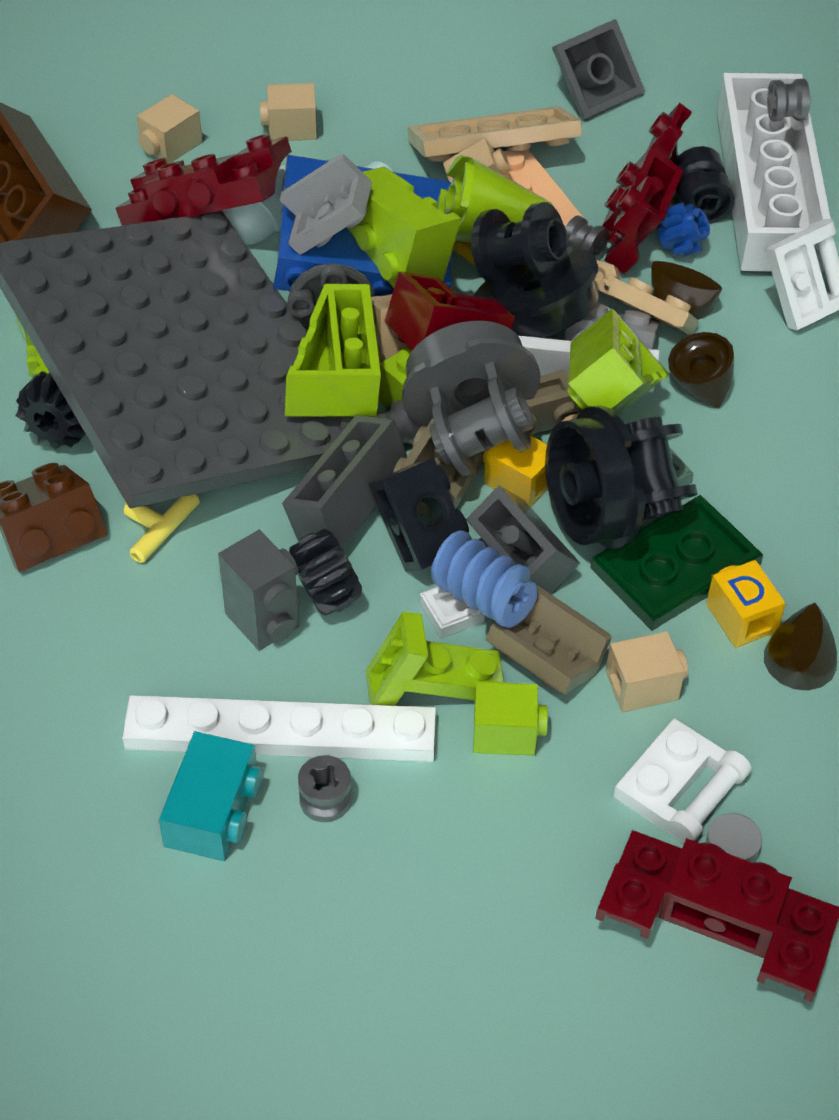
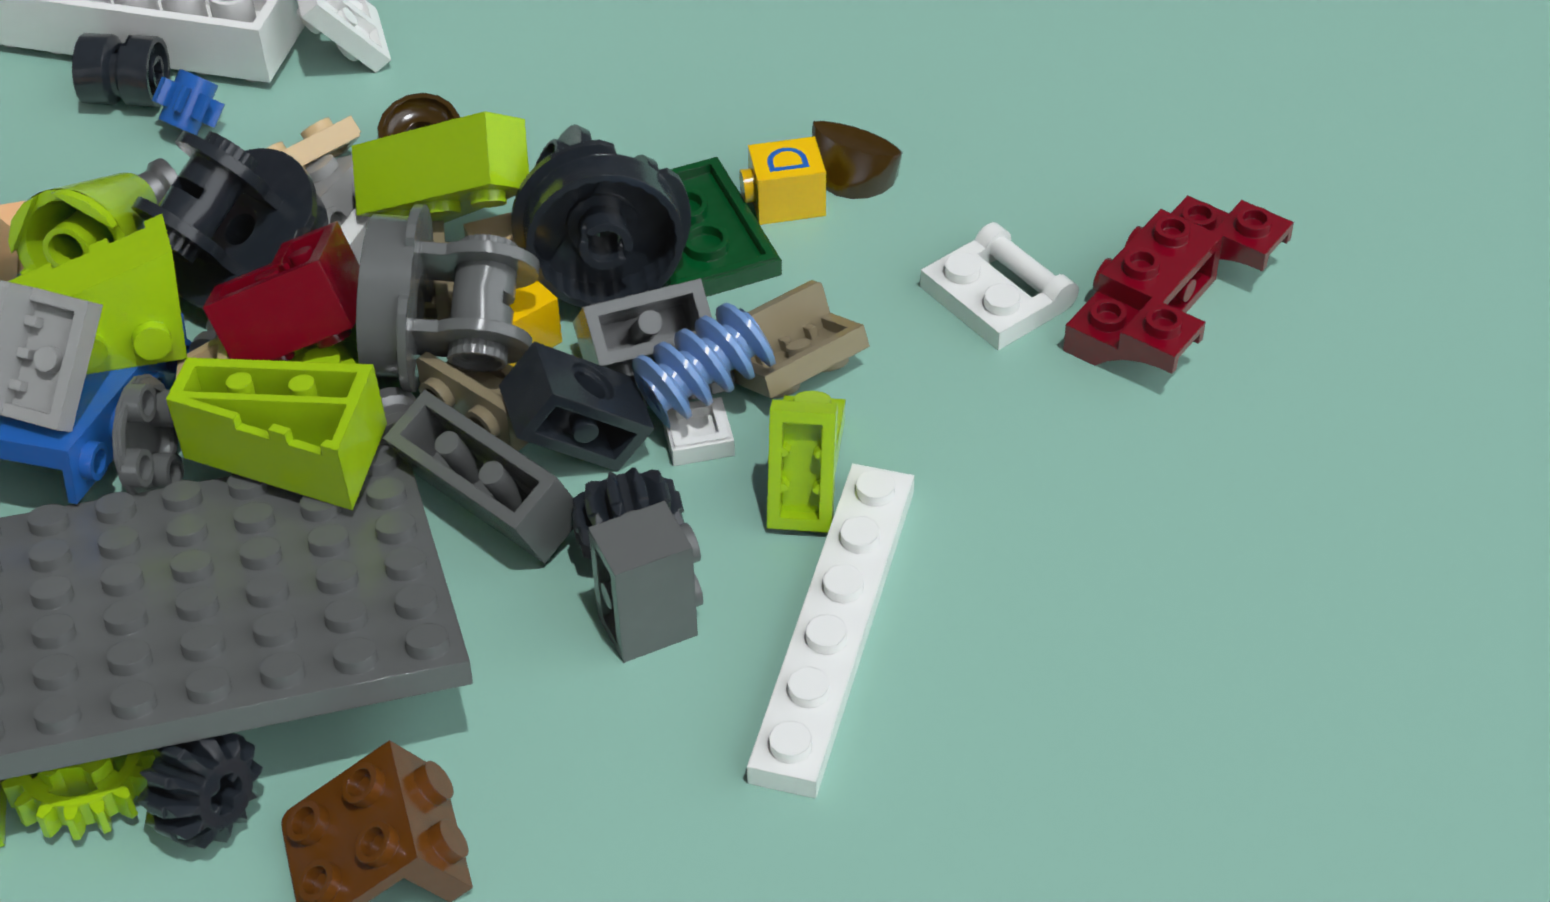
camera: 75 degrees left, 5 degrees down
(159, 524) = (449, 707): light yellow piece -> none
(209, 796) = (933, 694): teal brick -> none
(328, 802) = (944, 583): flat silver wheel -> none
(508, 718) = (888, 401): lime brick -> none
(644, 191) = (108, 110): dark red bracket -> none
(646, 671) = (857, 275): tan brick -> none
(686, 285) = (281, 121): dark brown piece -> none
(736, 836) = (1079, 260): light grey tile -> none

